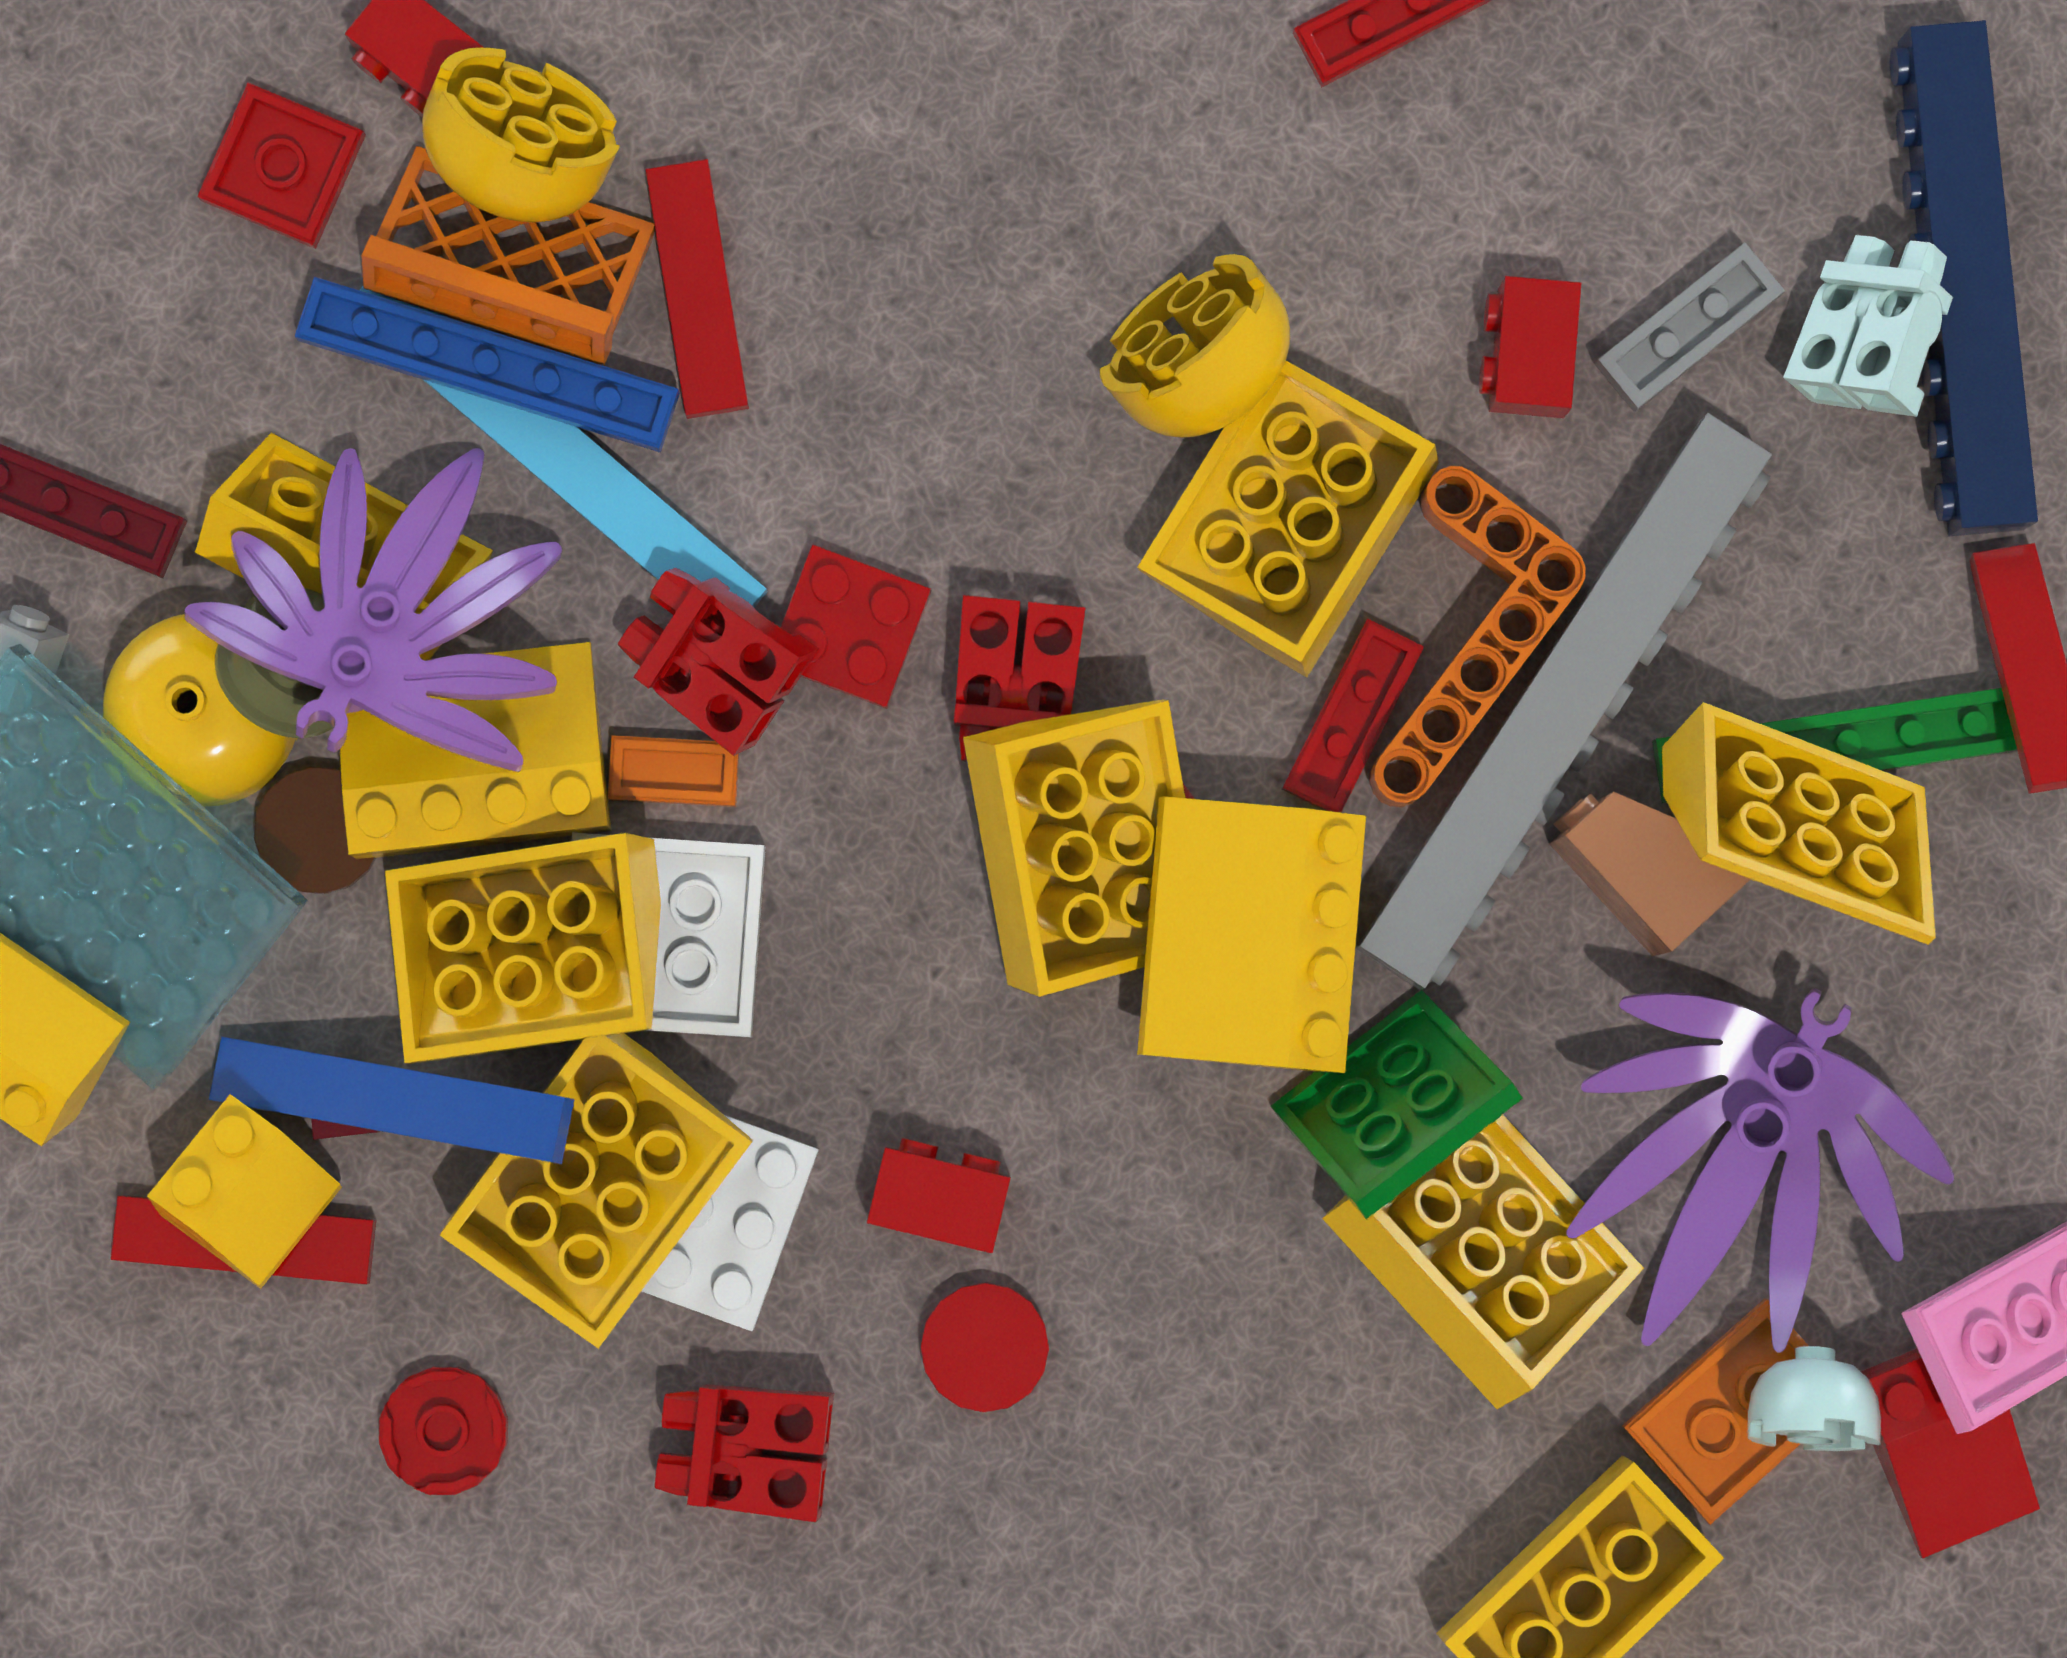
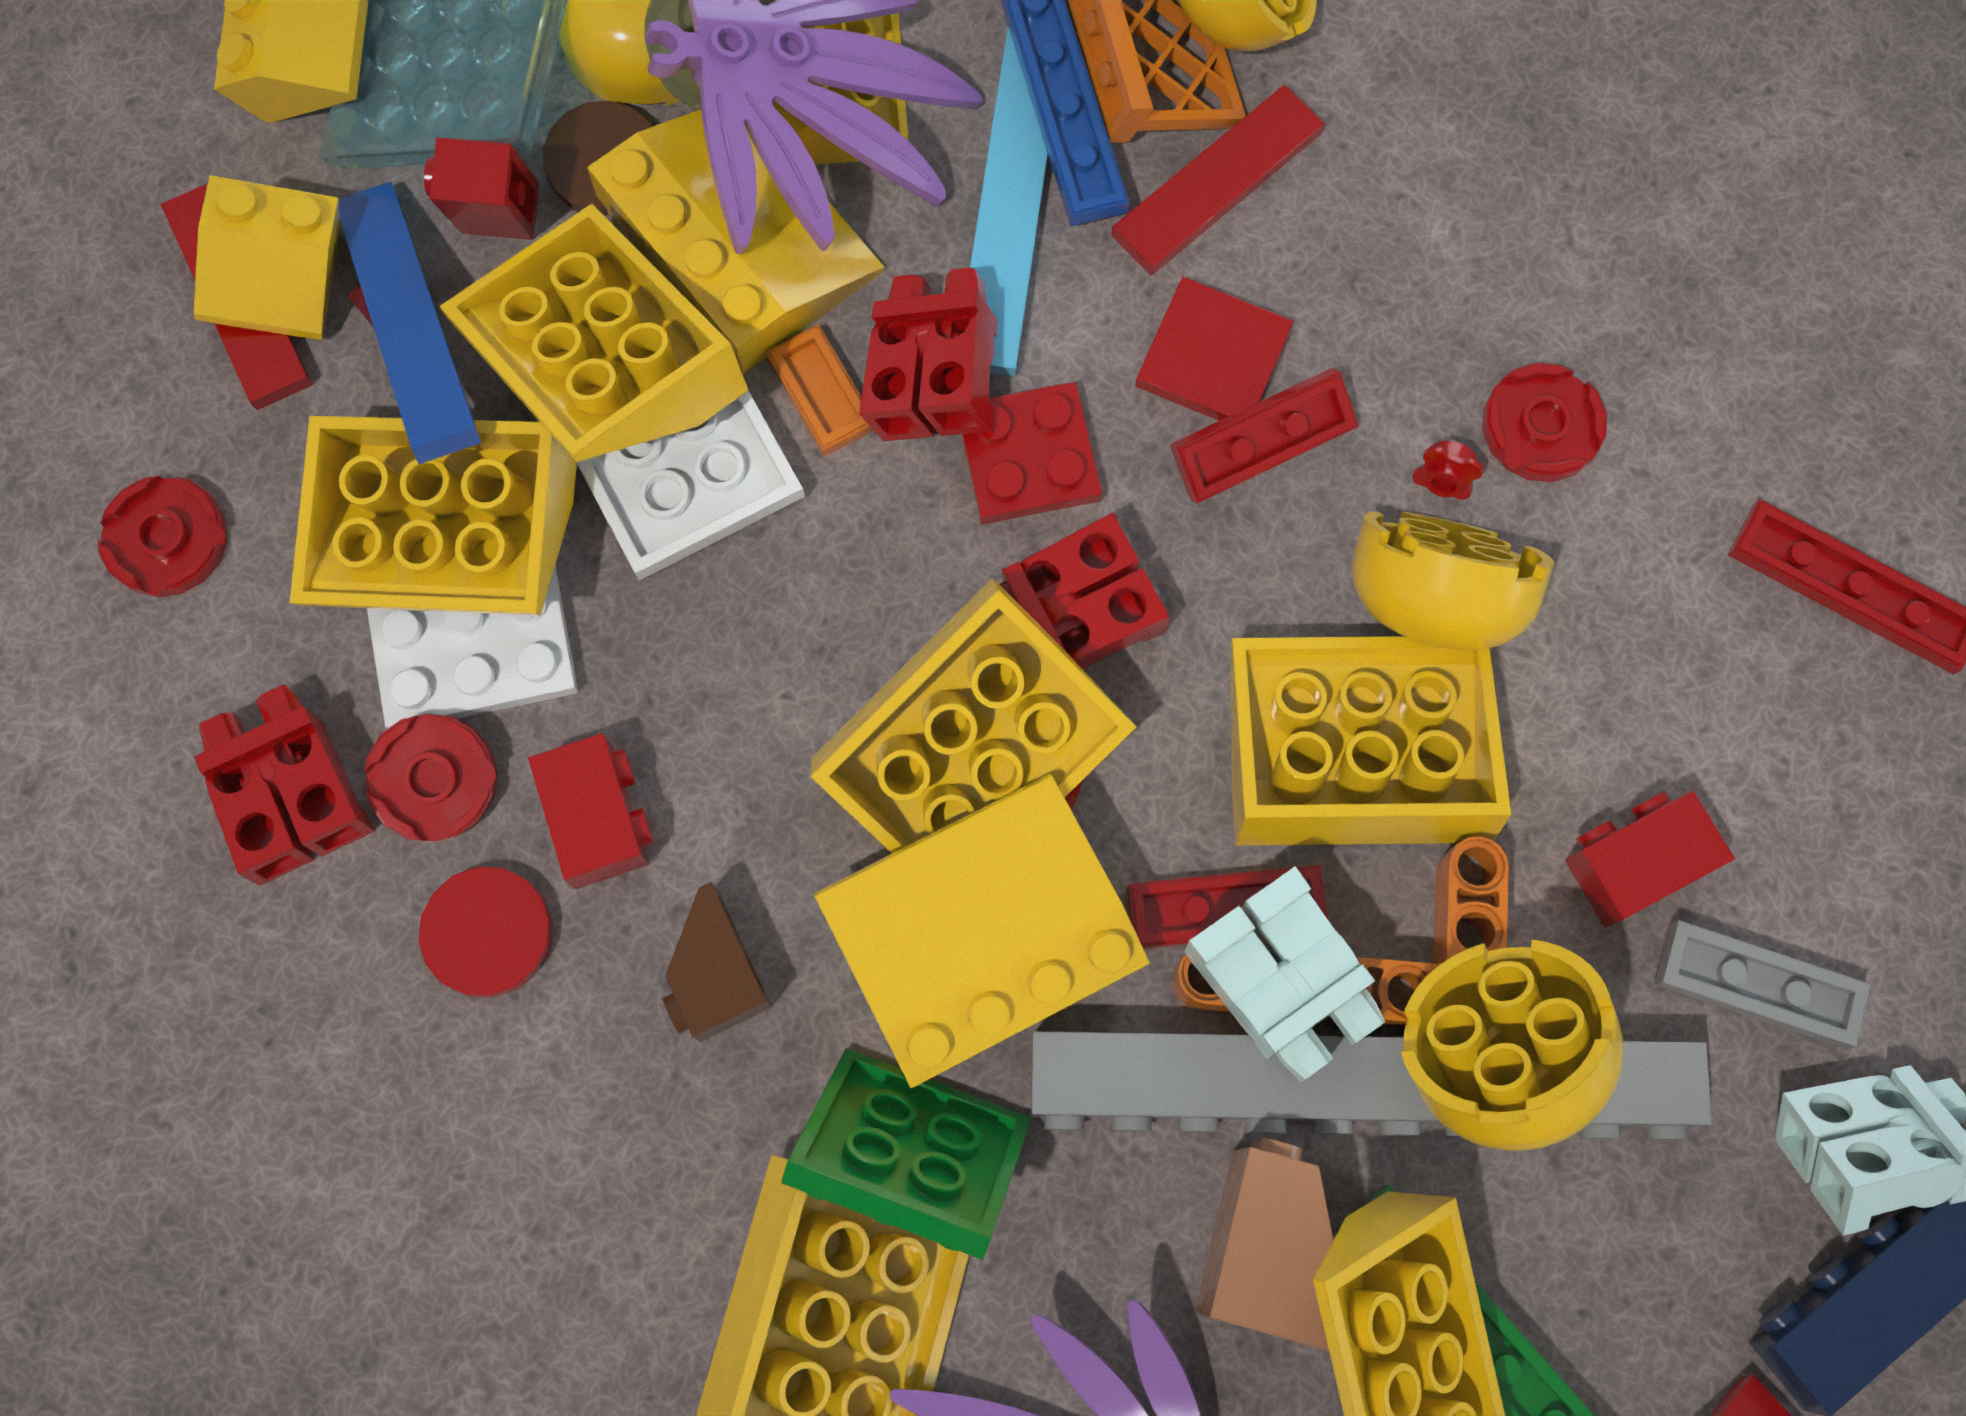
camera: 60 degrees right, 10 degrees down
(304, 961) = (483, 188): none -> red brick
(821, 1316) = (430, 777): none -> red tile
(861, 403) = (1213, 351): none -> red tile
(967, 413) = (1264, 435): none -> red tile
(1100, 276) = (1448, 470): none -> red plate
(1105, 183) = (1532, 440): none -> red tile
(1143, 1178) = (711, 972): none -> reddish brown slope
(1468, 711) = (1284, 973): none -> light aqua hips
(1617, 578) = (1513, 1045): none -> yellow cylinder

